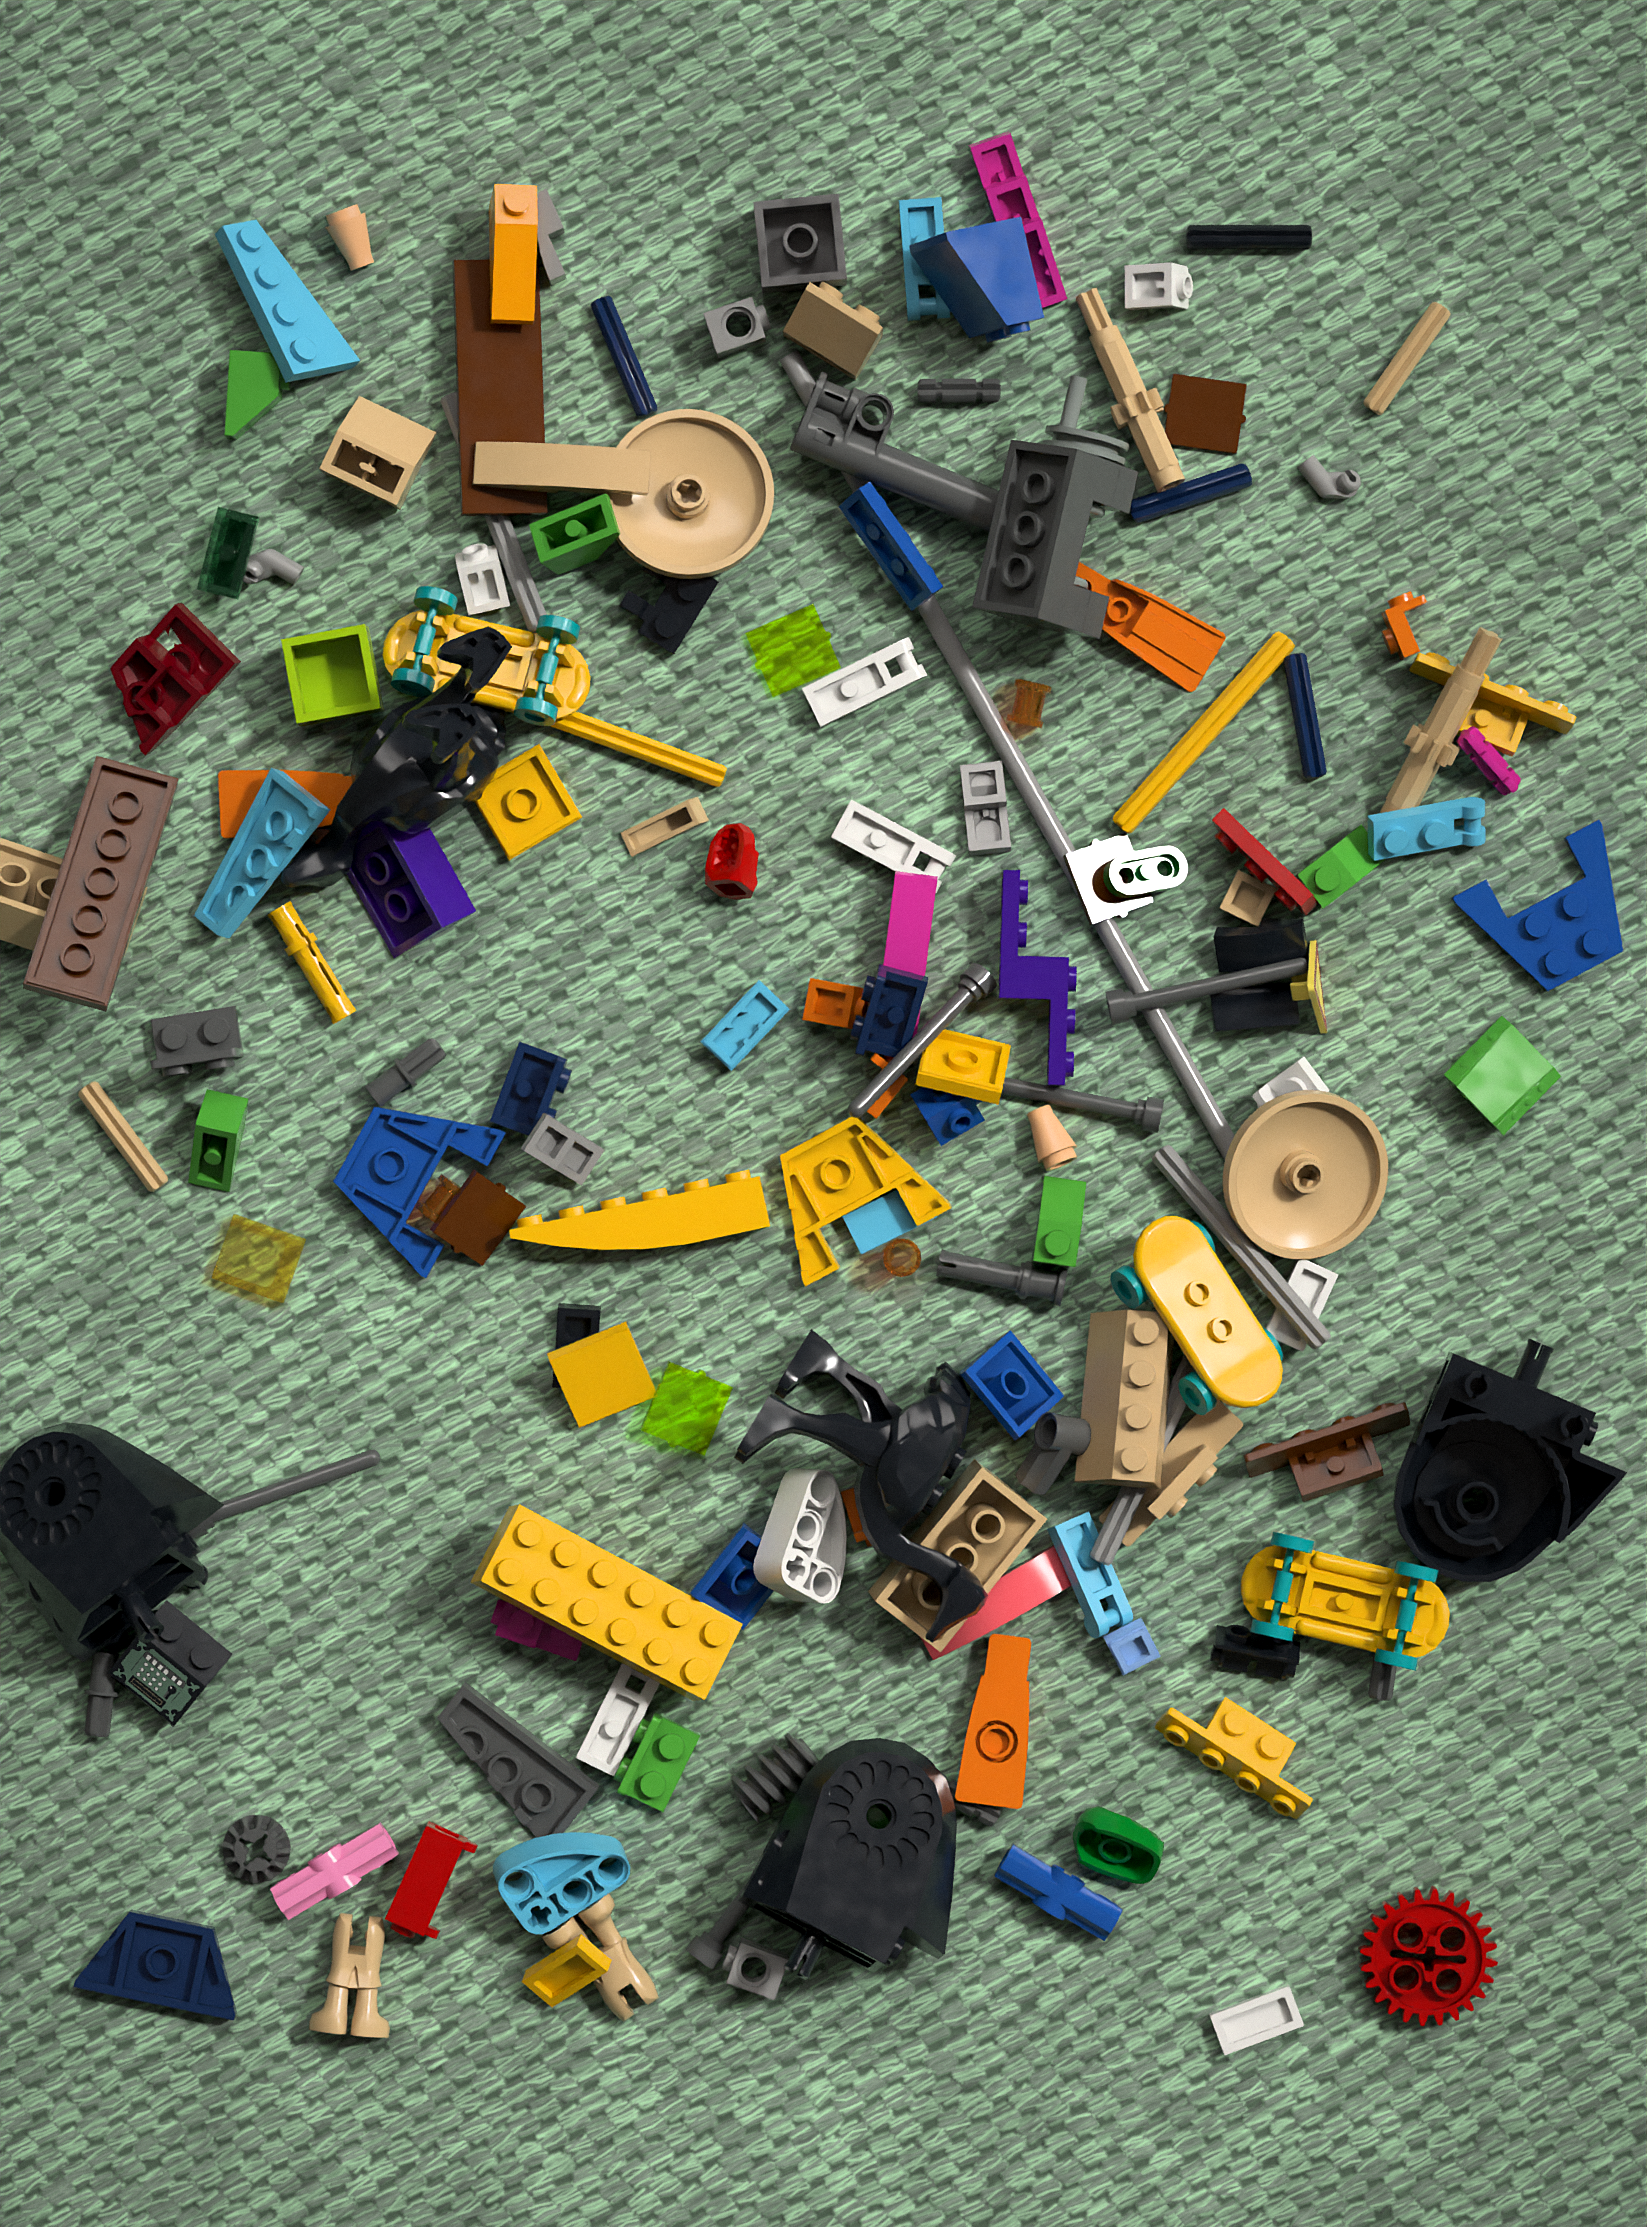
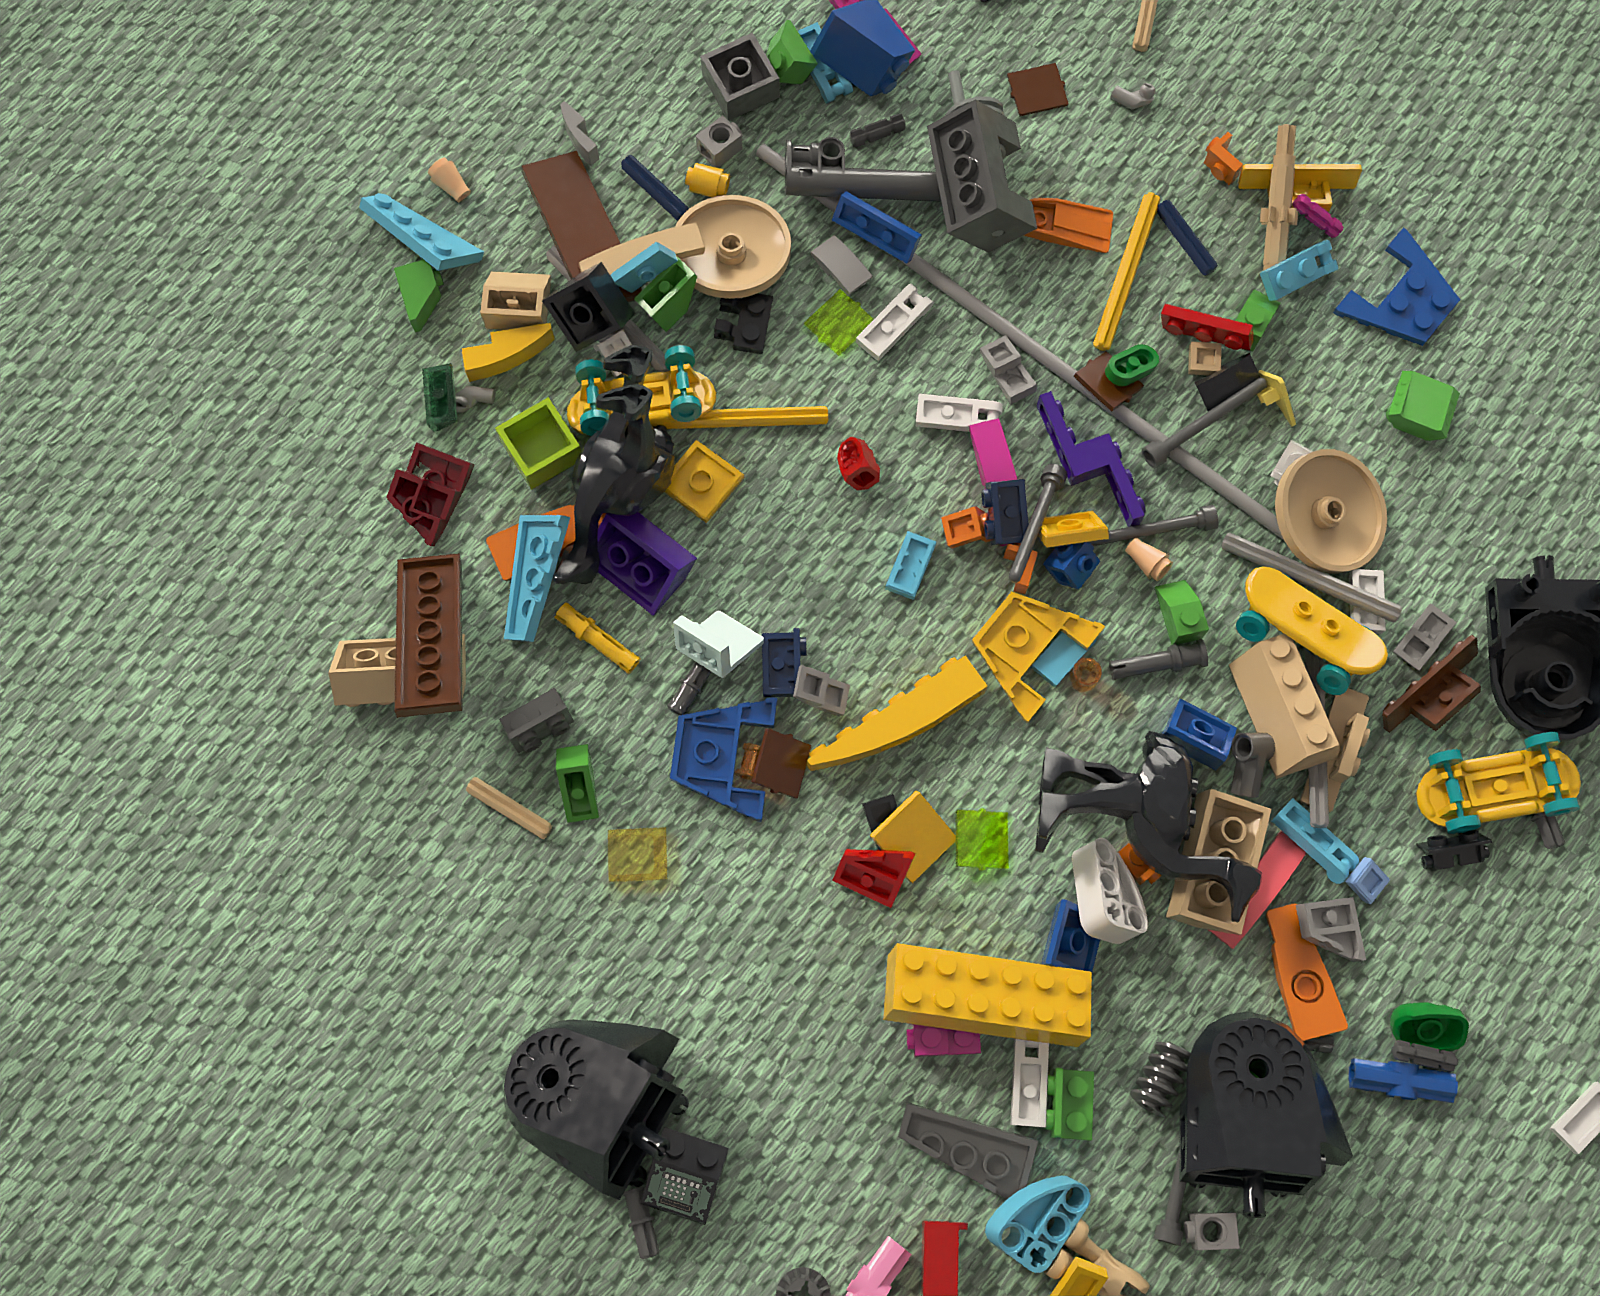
camera: 25 degrees left, 15 degrees down
(288, 1487) = (721, 1011): dark grey piece -> none
(336, 522) = (507, 350): none -> yellow slope
(459, 1033) = (717, 642): none -> light aqua bracket
(464, 520) = (589, 307): none -> black slope
(513, 253) = (557, 144): light orange slope -> none
(535, 1399) = (874, 873): none -> red wing
(555, 495) = (644, 267): none -> medium azure plate
(664, 826) = (801, 460): tan piece -> none
(697, 378) = (707, 180): none -> yellow brick
(827, 572) = (841, 264): none -> light grey slope
(833, 329) = (783, 114): tan slope -> none
(879, 234) = (790, 55): none -> bright green slope
(1028, 703) = (1007, 293): clear orange bush -> none
(1060, 1684) = (1333, 927): none -> light grey wing
(1094, 1876) = (1424, 1056): none -> dark grey axle
(1135, 405) = (984, 86): tan piece -> none
(1157, 286) = (974, 24): white bracket -> none
(1191, 493) = (1050, 135): dark blue axle -> none
(1241, 1749) = (1479, 924): yellow bracket -> none
(1254, 1007) = (1242, 426): black slope -> none
(1351, 1377) = (1424, 637): none -> light grey slope

